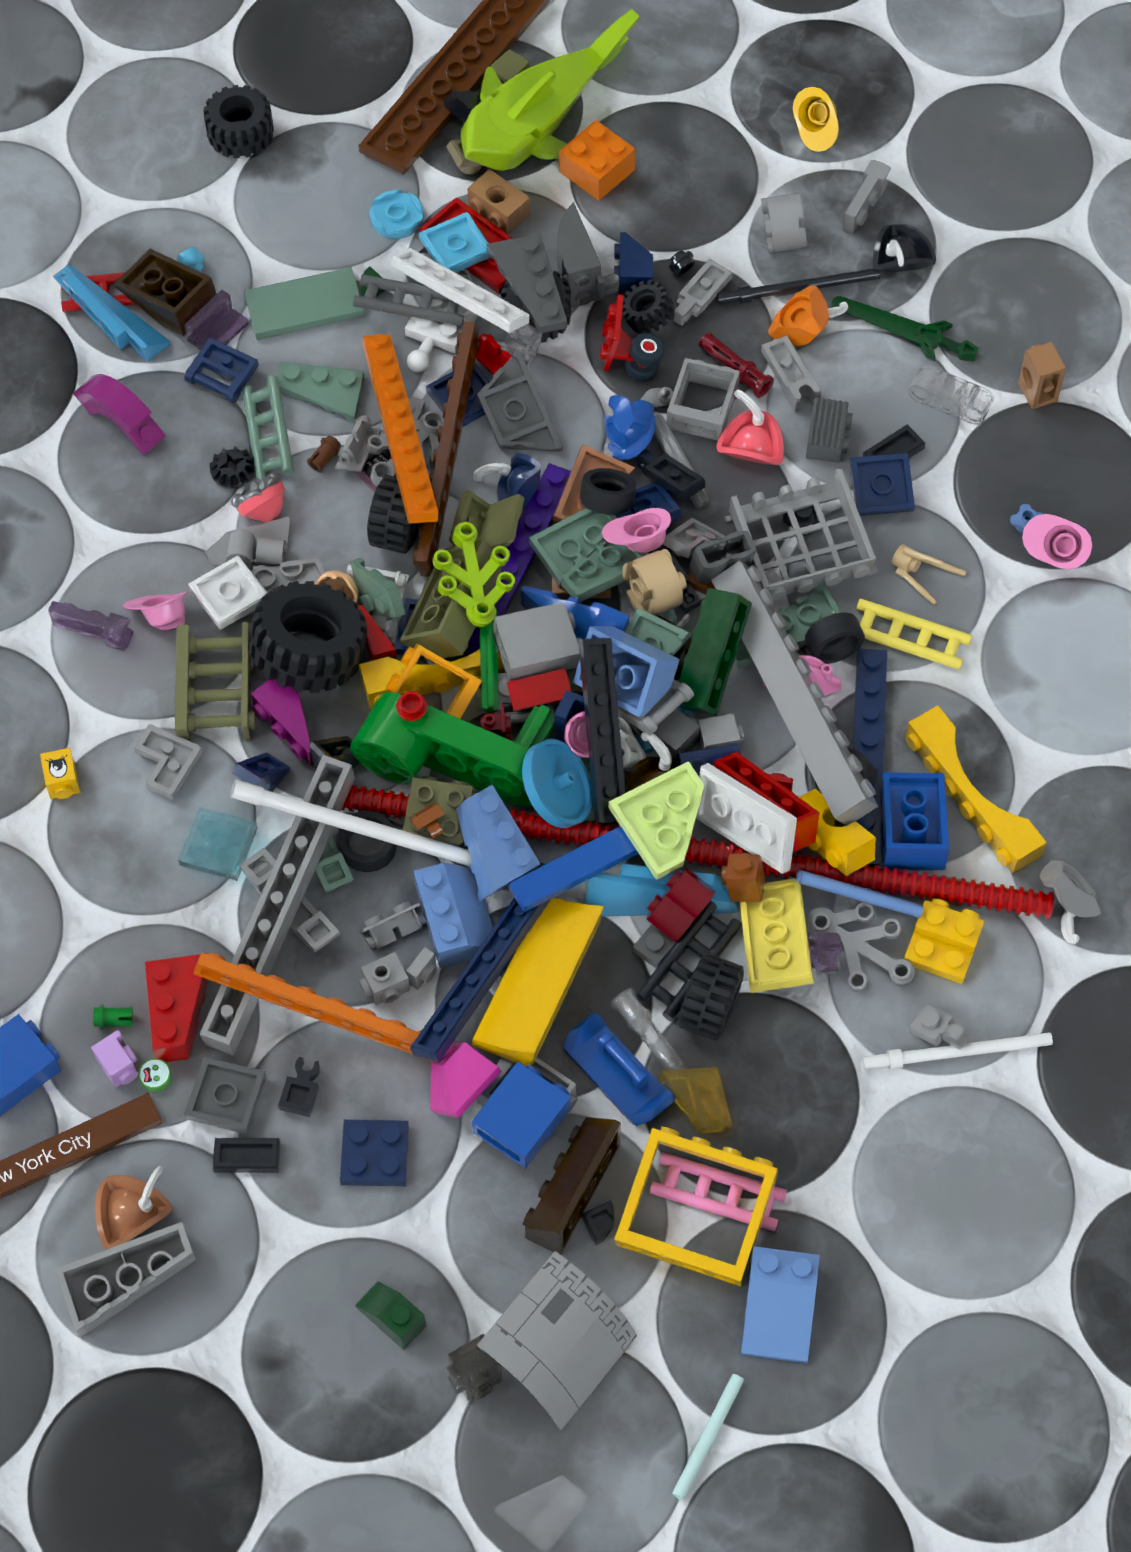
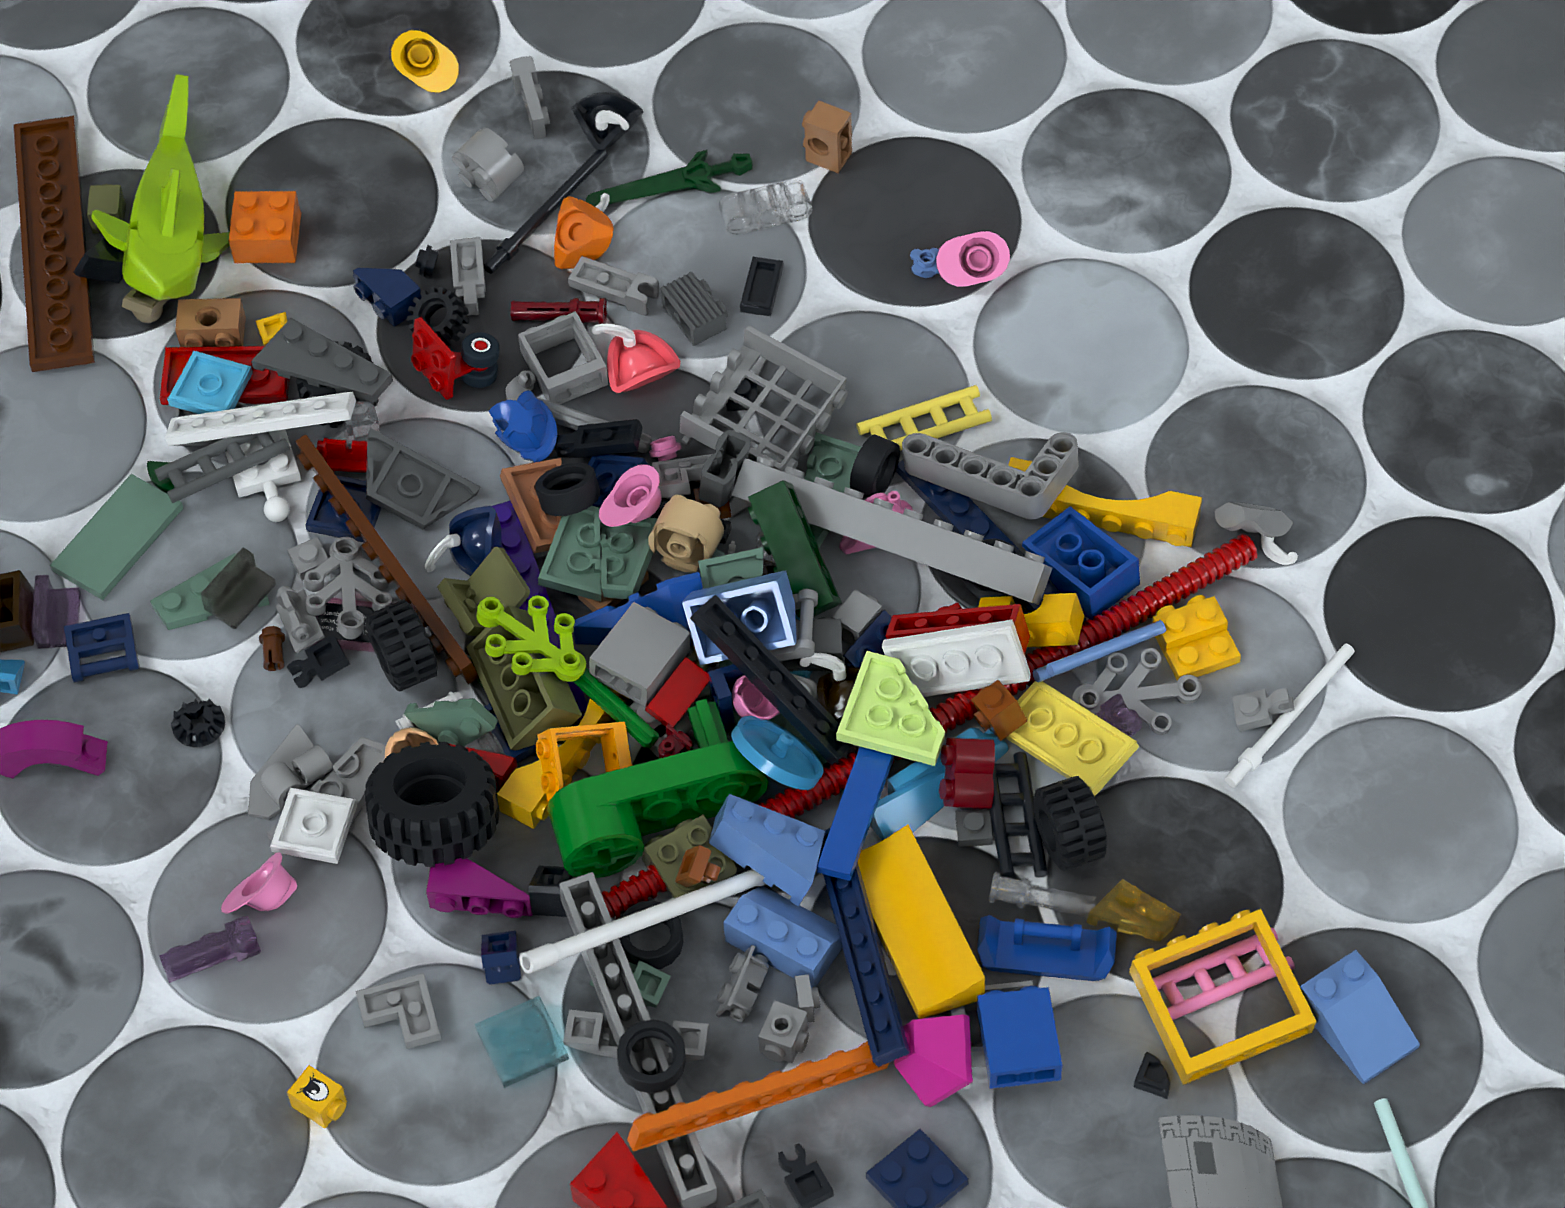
camera: 40 degrees left, 5 degrees down
(188, 670) = (365, 943): olive fence -> none
(255, 421) = (218, 664): sand green bar -> none
(261, 499) = (257, 725): coral hair -> none
(261, 897) = (645, 1030): none -> black tyre
(336, 395) = (237, 589): none -> clear smoke panel
(345, 487) = (323, 660): none -> black plate
(396, 214) = (123, 401): medium azure tile -> none
(400, 429) = (335, 569): orange plate -> none
(411, 706) = (598, 782): red plate -> none
(547, 233) = (270, 326): none -> yellow tile
(573, 1183) = (1107, 1060): dark brown slope -> none
(580, 263) = (344, 316): dark grey piece -> none
(710, 514) = (664, 448): none -> bright pink plate
(882, 484) = (785, 315): dark blue plate -> none
(909, 560) = (865, 363): tan plant -> none
(912, 736) = (992, 482): none -> light grey beam

